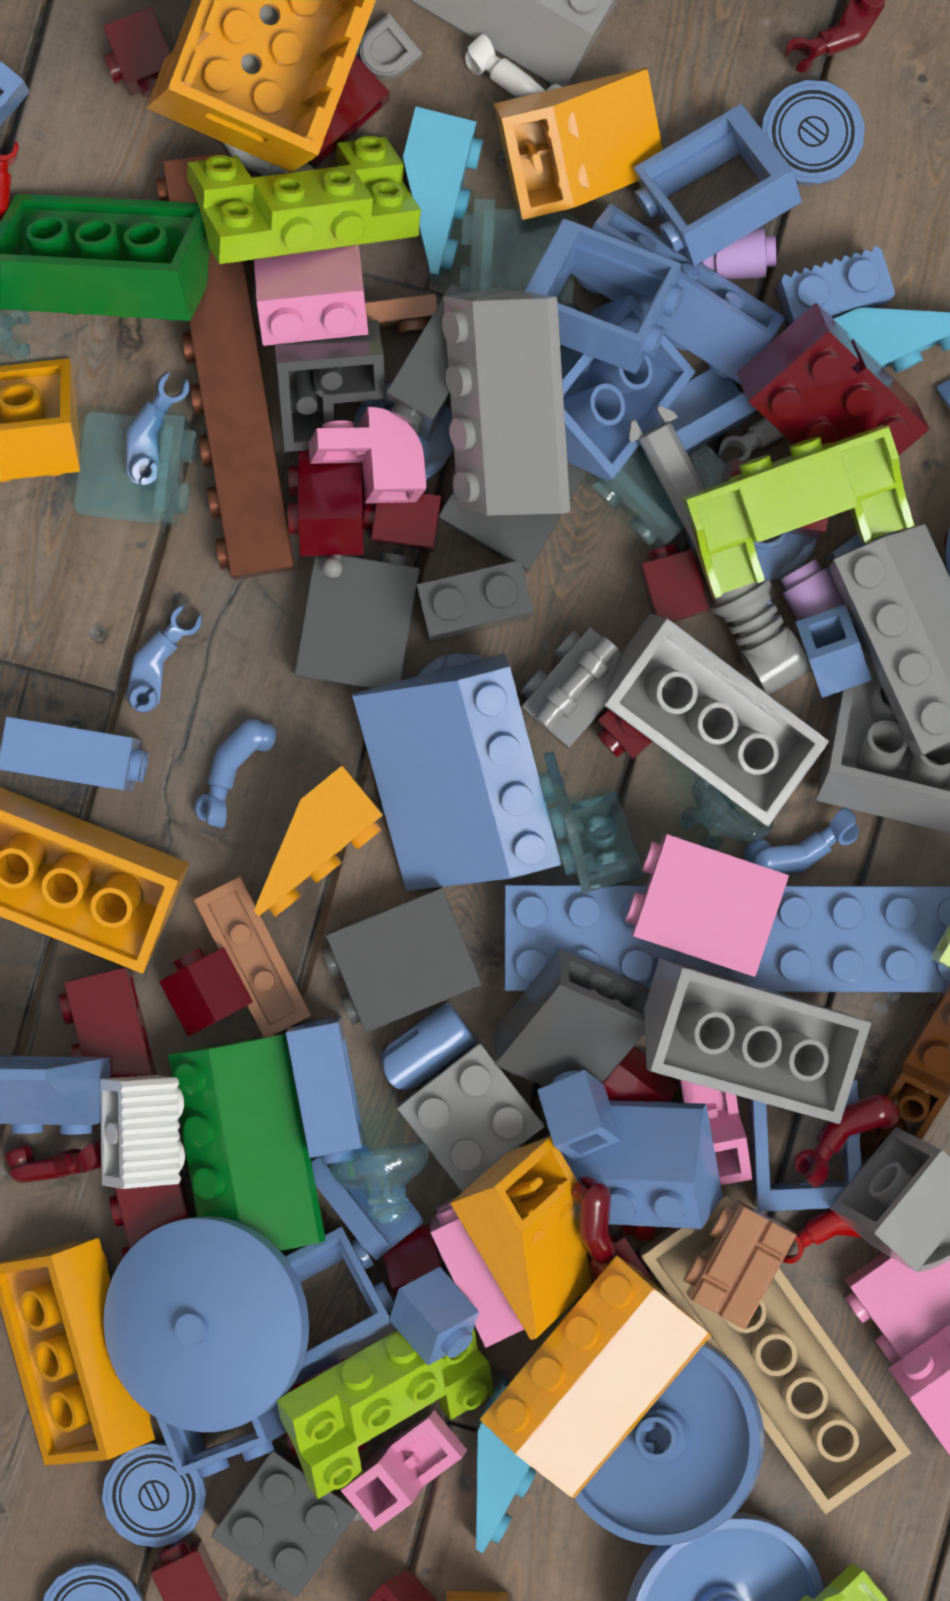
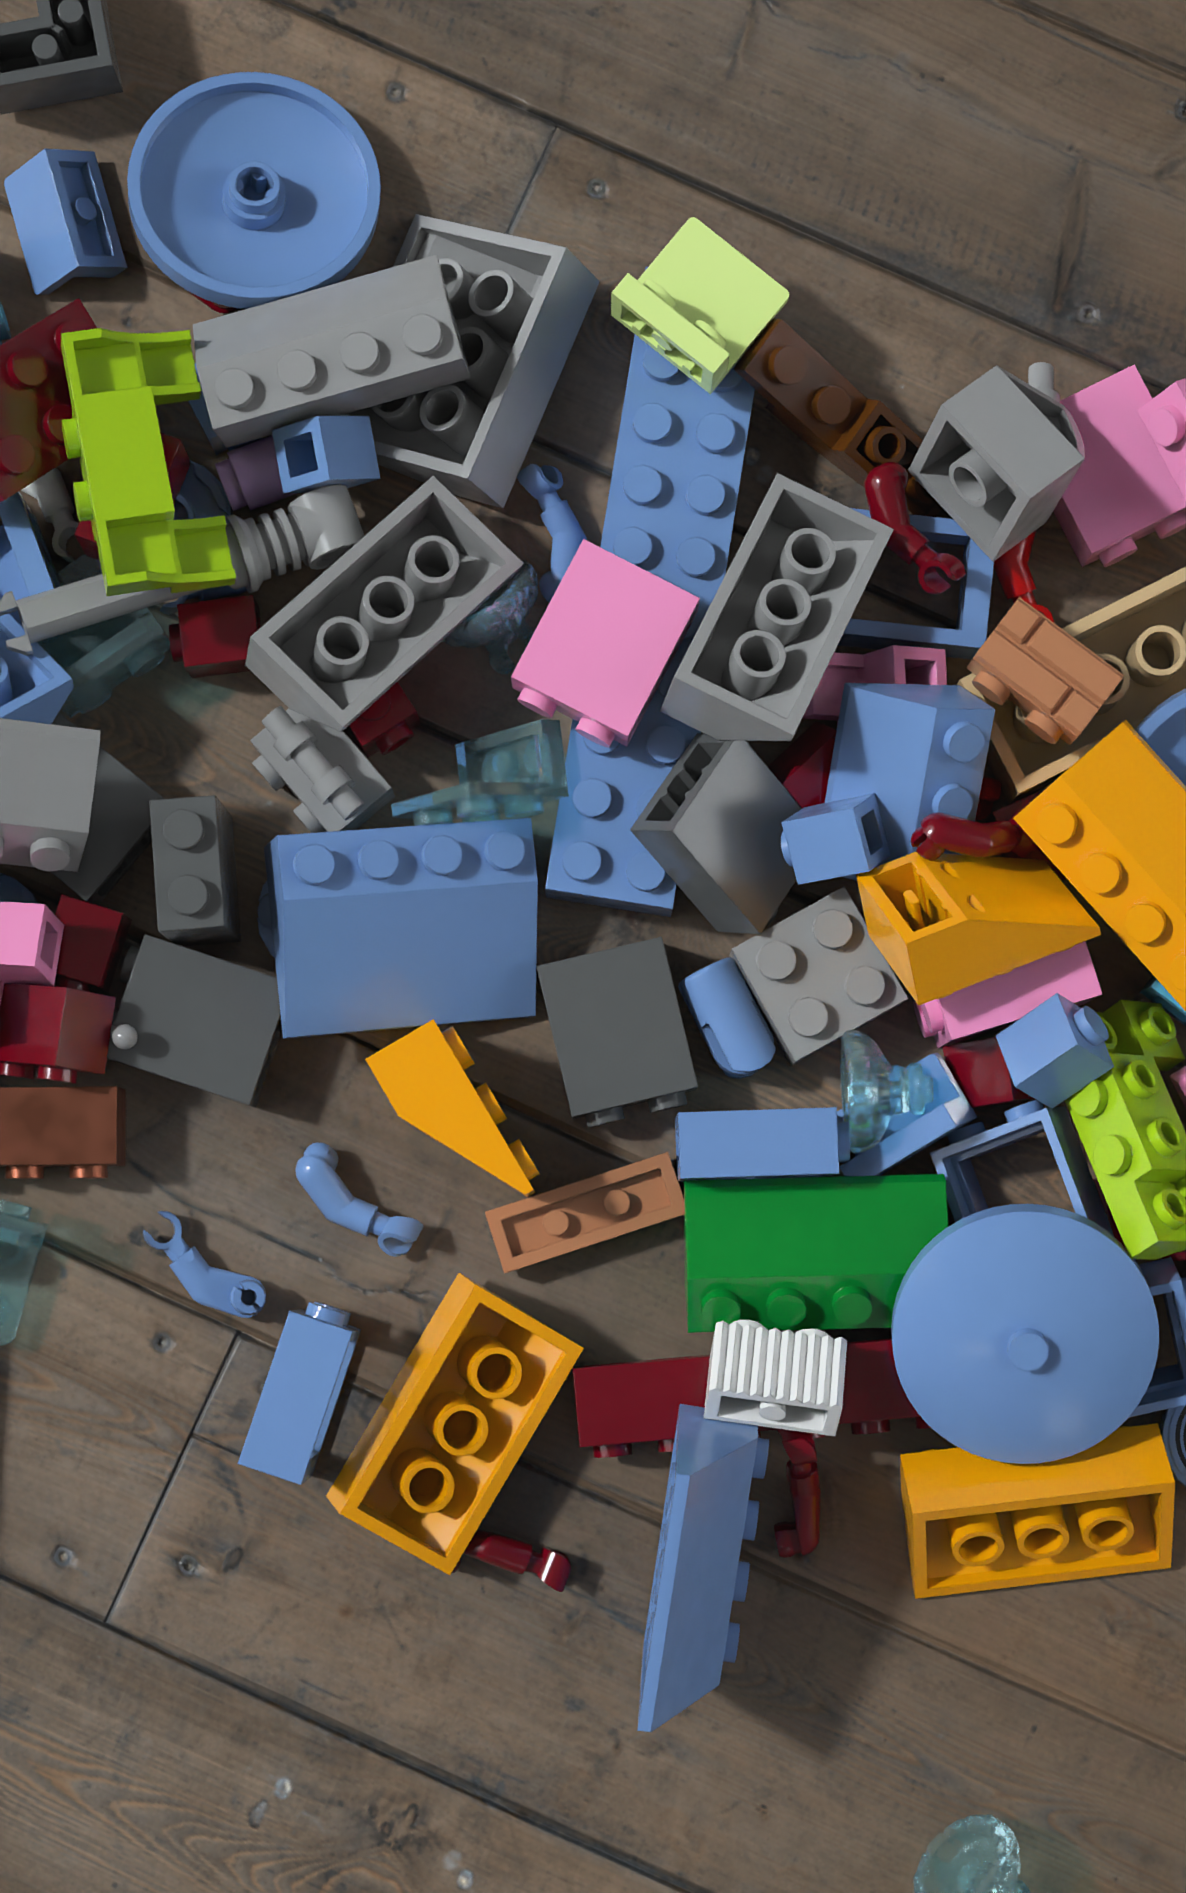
camera: 85 degrees left, 5 degrees down
(204, 989) = (615, 1276): dark red brick -> none

